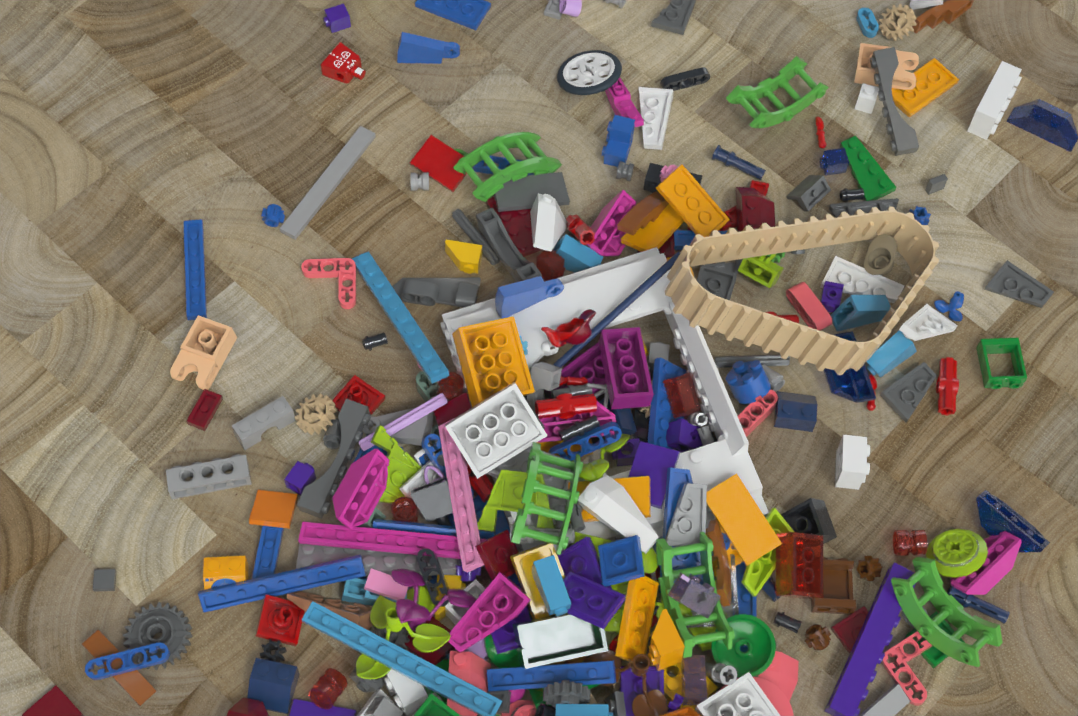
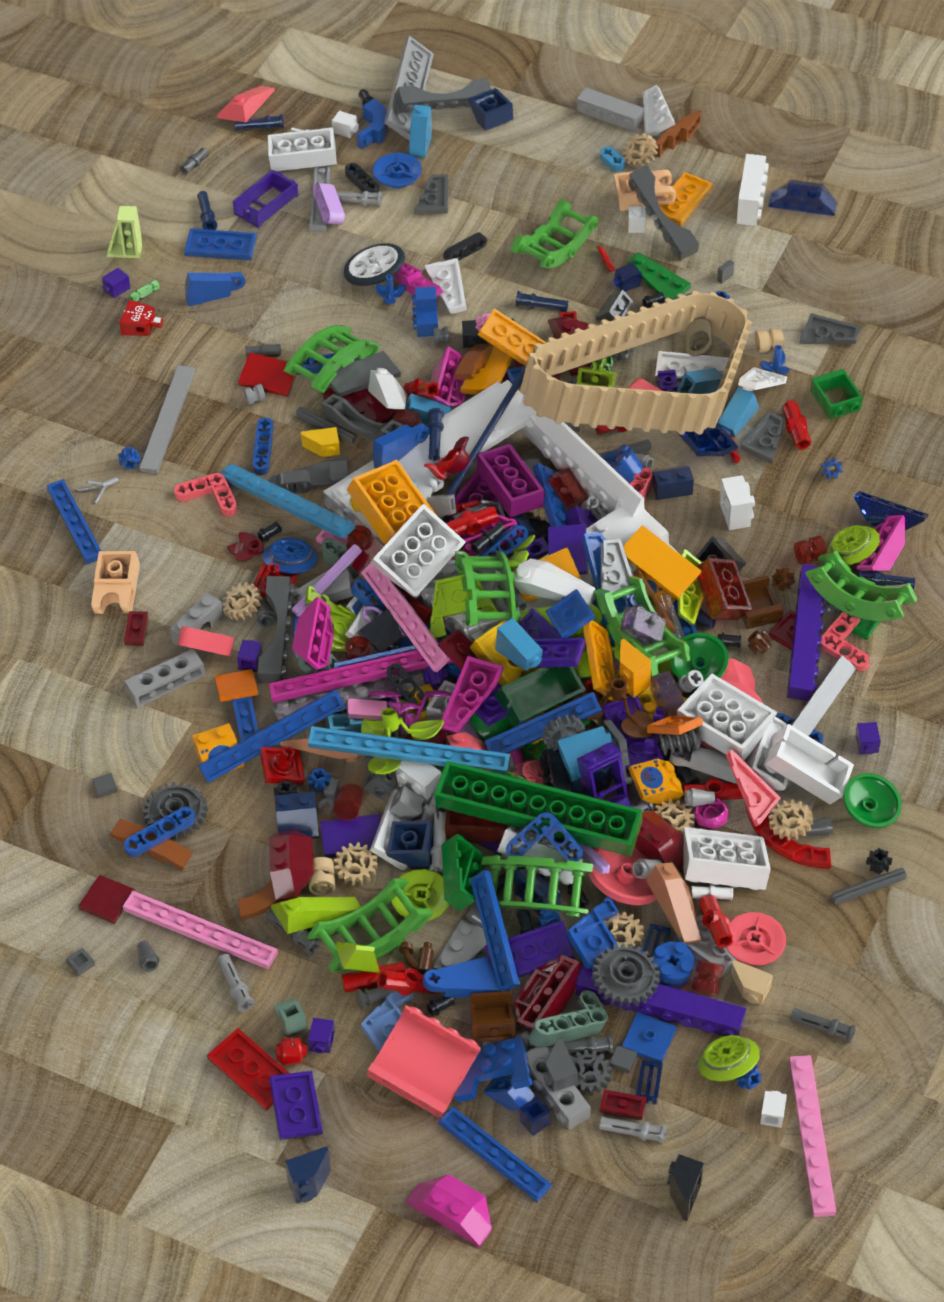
camera: 15 degrees left, 10 degrees down
(240, 236) = (96, 484): none -> light grey plant
(260, 451) = (205, 641): none -> coral beam
(311, 655) = (319, 779): none -> blue gear
(316, 669) = (330, 792): none -> dark grey plate
(343, 350) = (246, 547): none -> dark red plate
(361, 34) = (144, 291): none -> bright green axle
(379, 386) = (291, 555): none -> blue piece
(410, 242) = (263, 446): none -> blue beam
(447, 134) = (274, 349): none -> dark grey pin
(571, 285) = (436, 427): none -> dark blue pin
(592, 105) = (388, 291): none -> blue plant
(953, 278) = (766, 340): none -> tan wheel
(966, 455) = (835, 472): none -> blue gear

